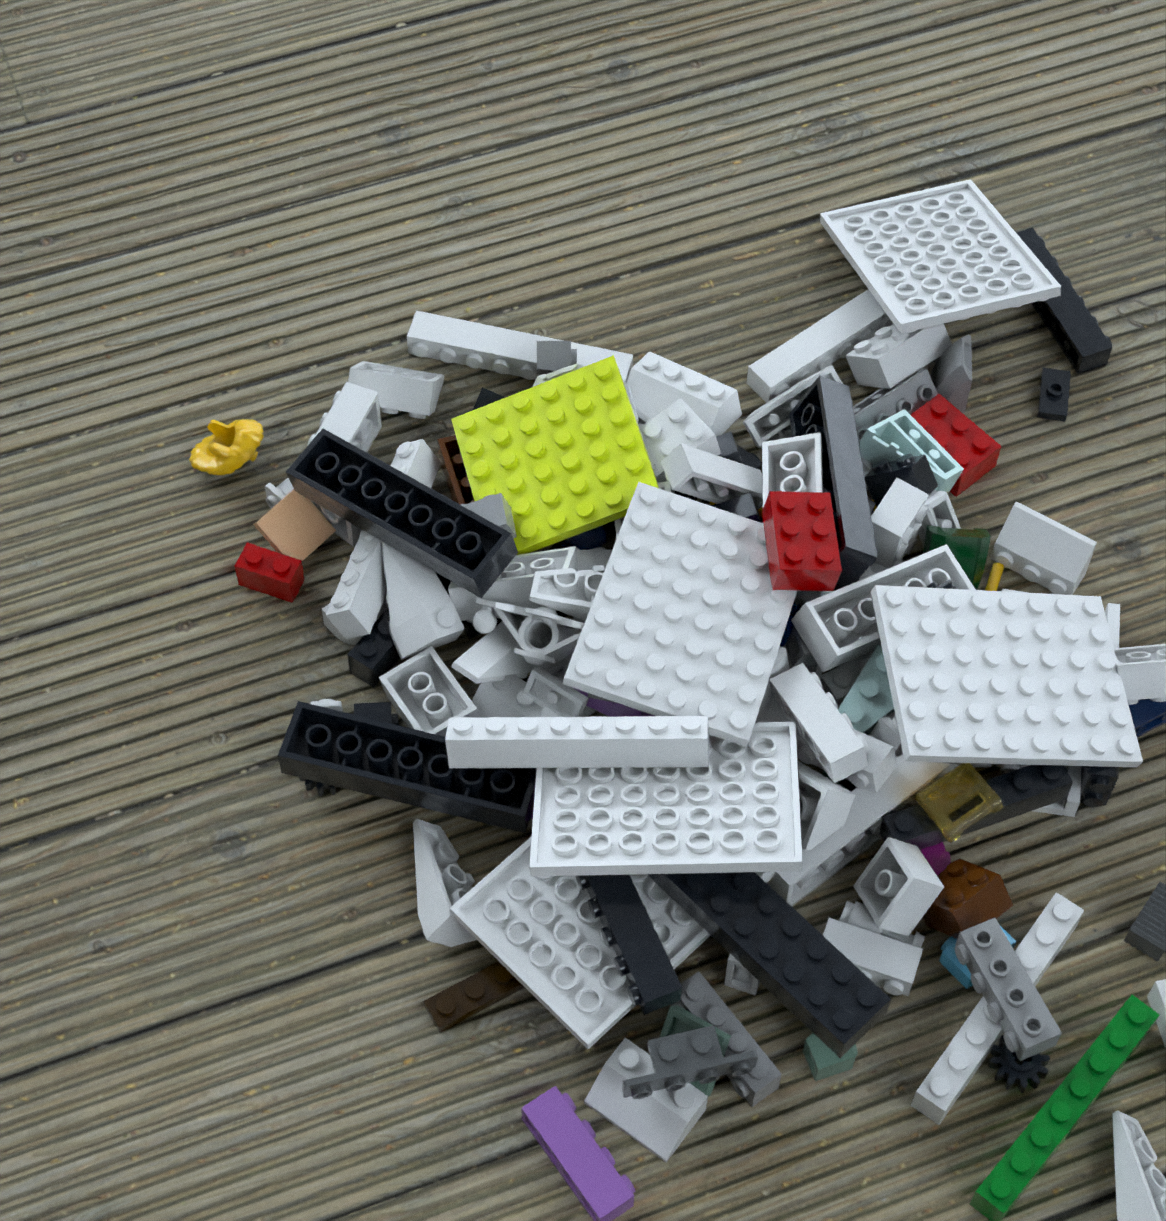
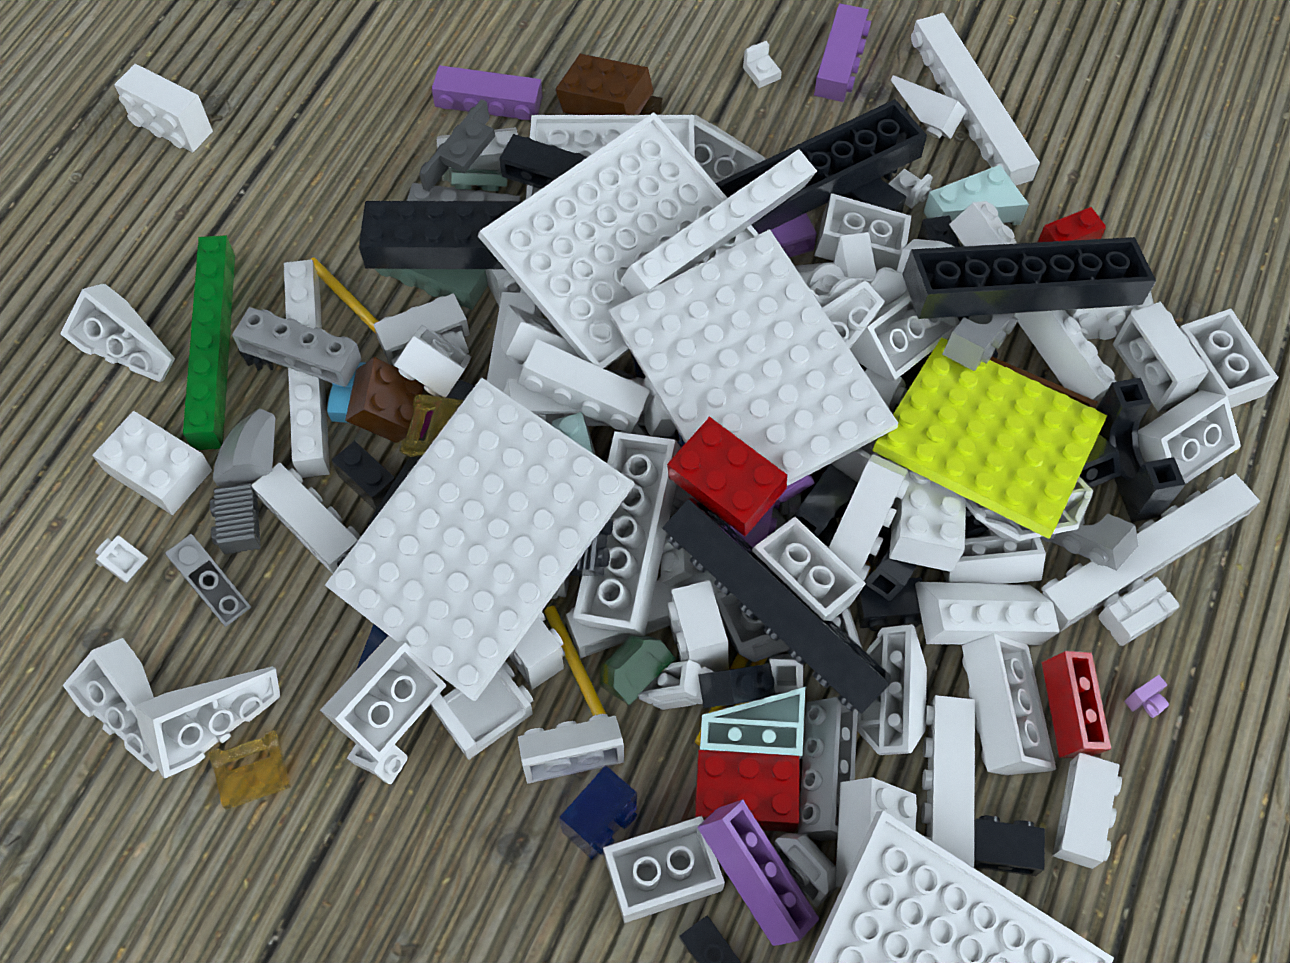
camera: 135 degrees right, 5 degrees up
(171, 751) = (985, 115): none -> white brick
(214, 894) = (841, 53): none -> medium lavender brick
(223, 764) = (933, 109): none -> white slope
(227, 446) = (1217, 286): yellow piece -> none
(297, 953) = (760, 65): none -> white bracket
(299, 660) = (990, 186): none -> light aqua wedge
(300, 400) = (1231, 357): none -> white brick
(475, 1041) = (604, 87): none -> reddish brown brick
(480, 368) = (1144, 486): none -> black arch
(575, 327) = (1138, 610): none -> white brick
(632, 293) = (1149, 697): none -> lavender tile
(686, 318) = (1075, 704): none -> red brick
(735, 346) = (1007, 706): none -> white slope
(747, 277) = (1087, 811): none -> white brick
(814, 295) = (1008, 846): none -> black brick
(903, 1060) = (345, 295): none -> yellow bar
(994, 387) = (758, 873): none -> medium lavender brick
(1027, 863) = (363, 474): none -> black brick
(1047, 445) = (662, 870): none -> white brick
(1064, 496) = (599, 813): none -> clear blue brick
(1100, 872) = (305, 516): none -> white brick
(1114, 956) = (246, 451): none -> light grey slope

